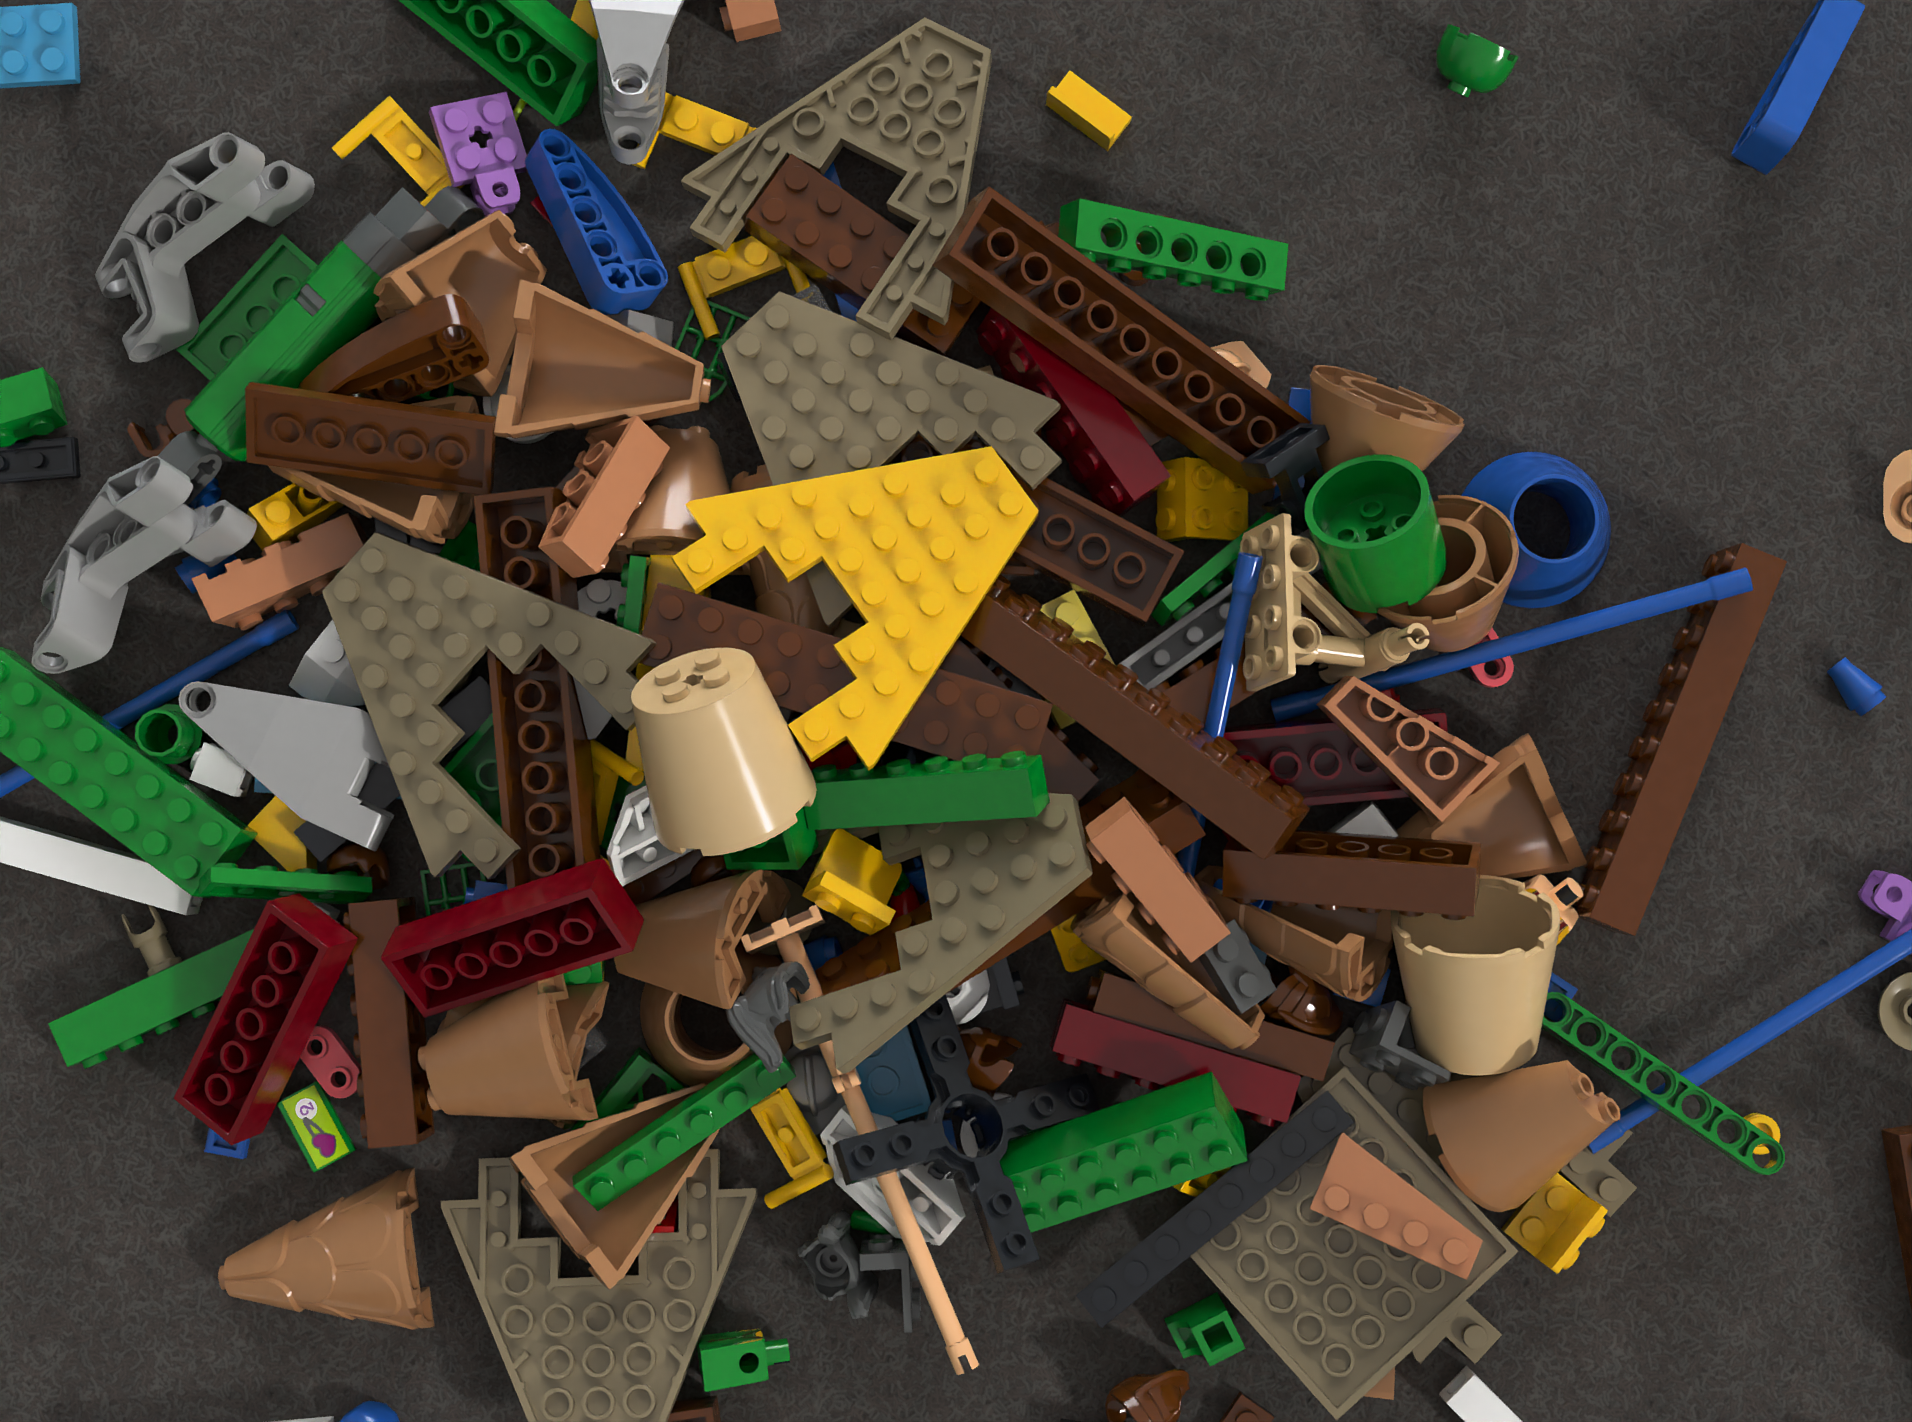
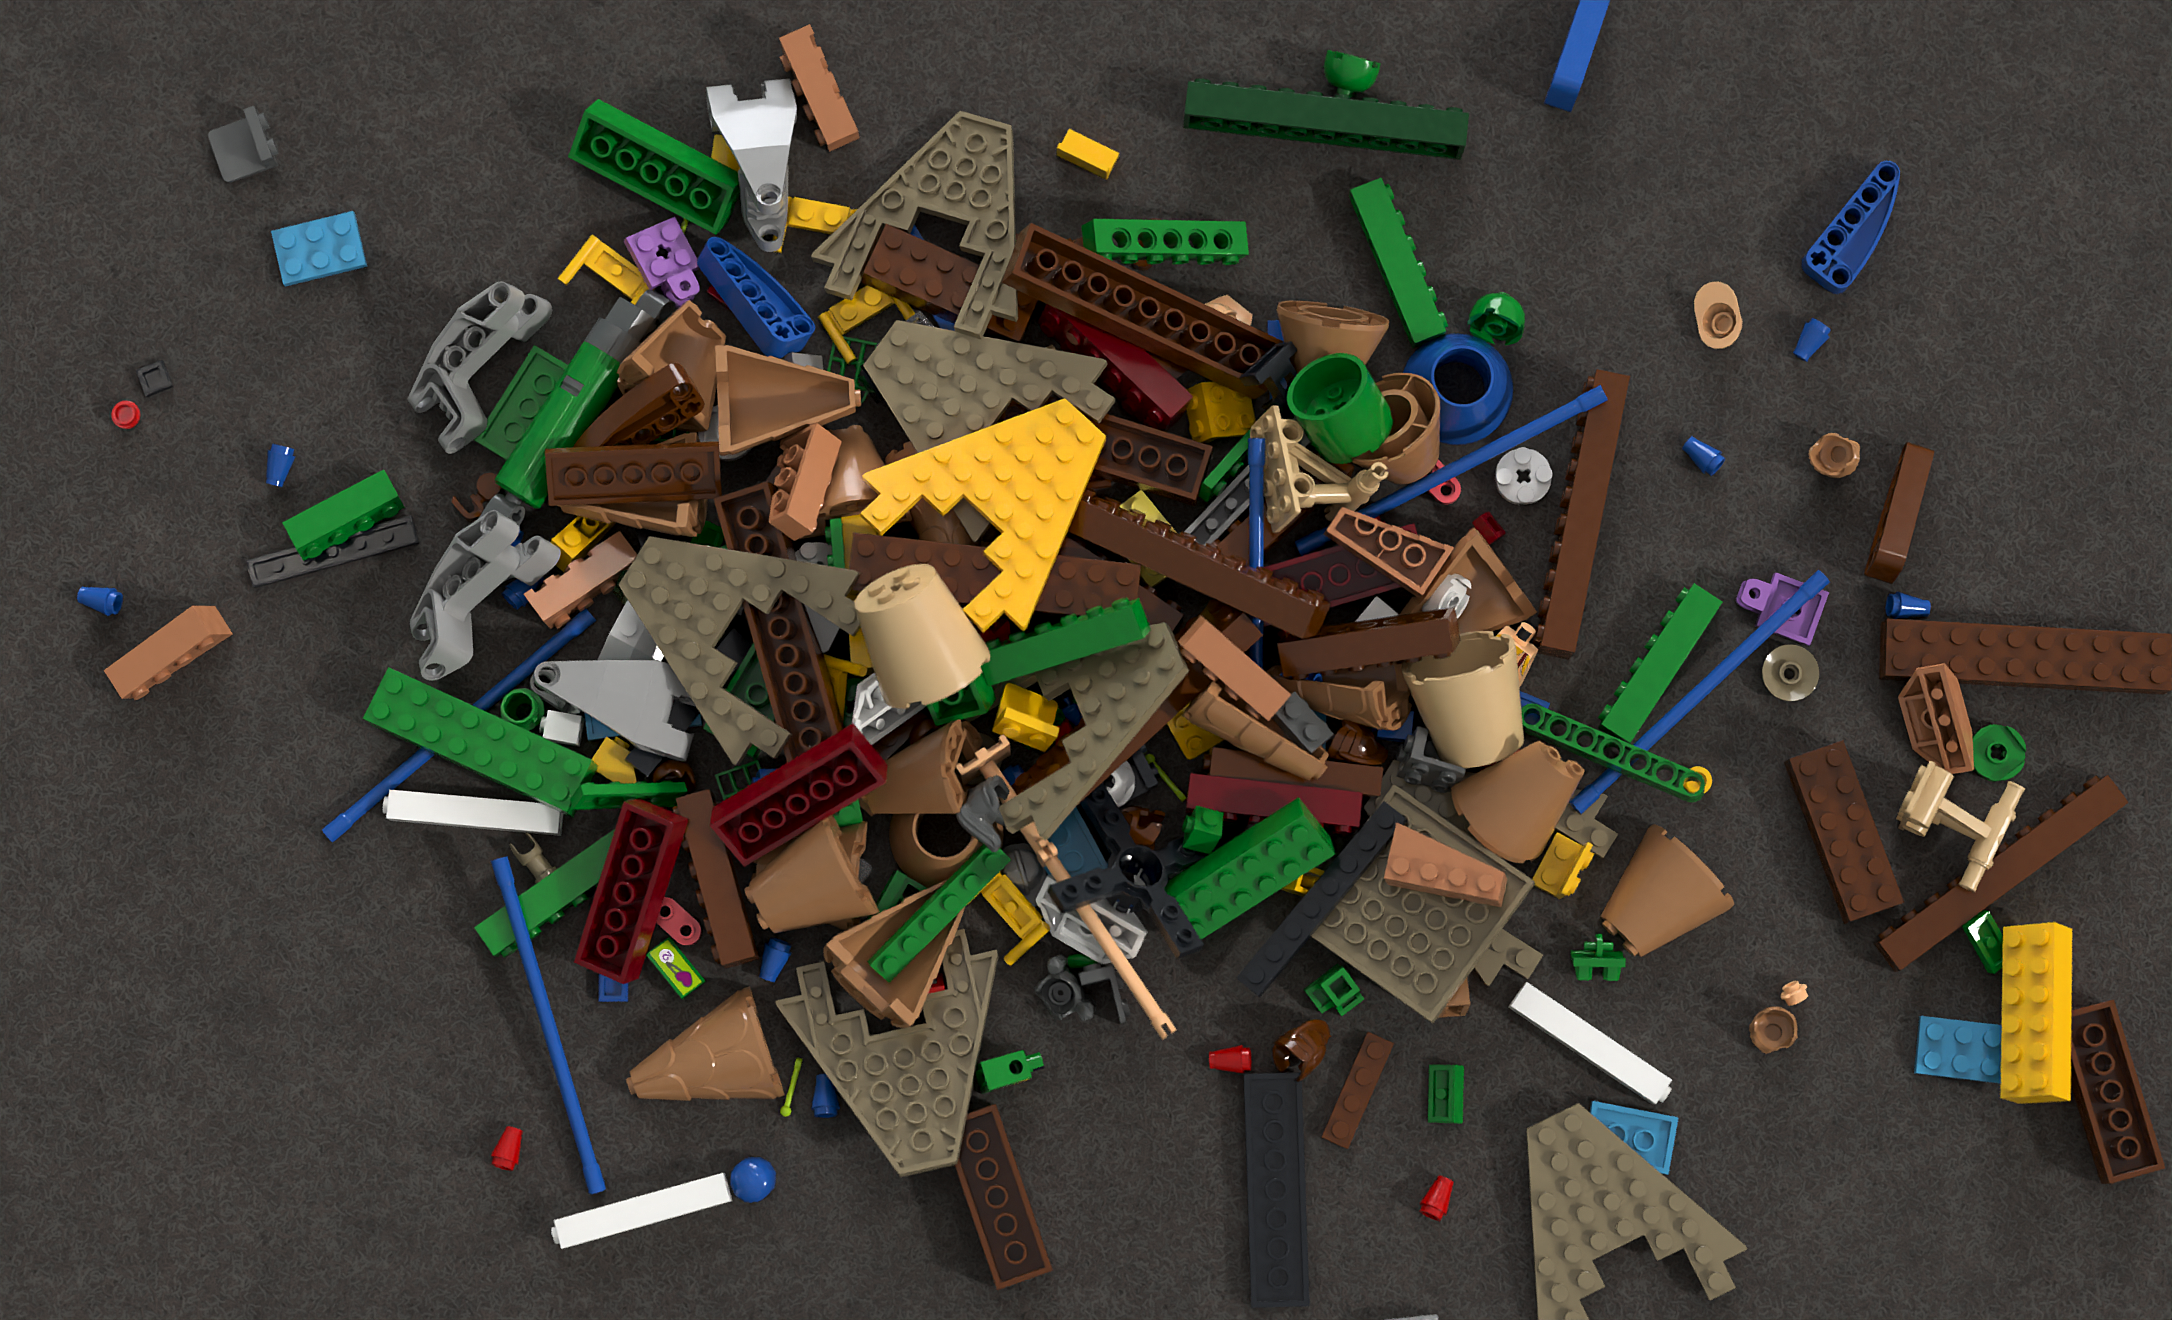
camera: 15 degrees left, 5 degrees down
(43, 1332) = (507, 1149): none -> red cone
(97, 972) = (590, 1166): none -> blue piece
(430, 1347) = (786, 1110): none -> lime hinge
(452, 1139) = (774, 958): none -> blue cone
(482, 1349) = (825, 1098): none -> blue cone
(1015, 962) = (1150, 758): none -> lime hinge
(1049, 1397) = (1231, 1059): none -> red cone
(1069, 1086) = (1202, 829): none -> green brick
(1428, 121) = (1326, 119): none -> dark green brick
(1472, 822) = (1450, 594): none -> white plate
(1486, 339) = (1397, 262): none -> green brick
(1540, 730) = (1488, 527): none -> dark red tile
(1578, 1353) = (1597, 955): none -> green hips
(1598, 691) = (1522, 460): none -> white plate
(1611, 443) = (1498, 318): none -> green cylinder
(1681, 1282) = (1662, 895): none -> medium nougat cone
(1740, 964) = (1659, 664): none -> green brick

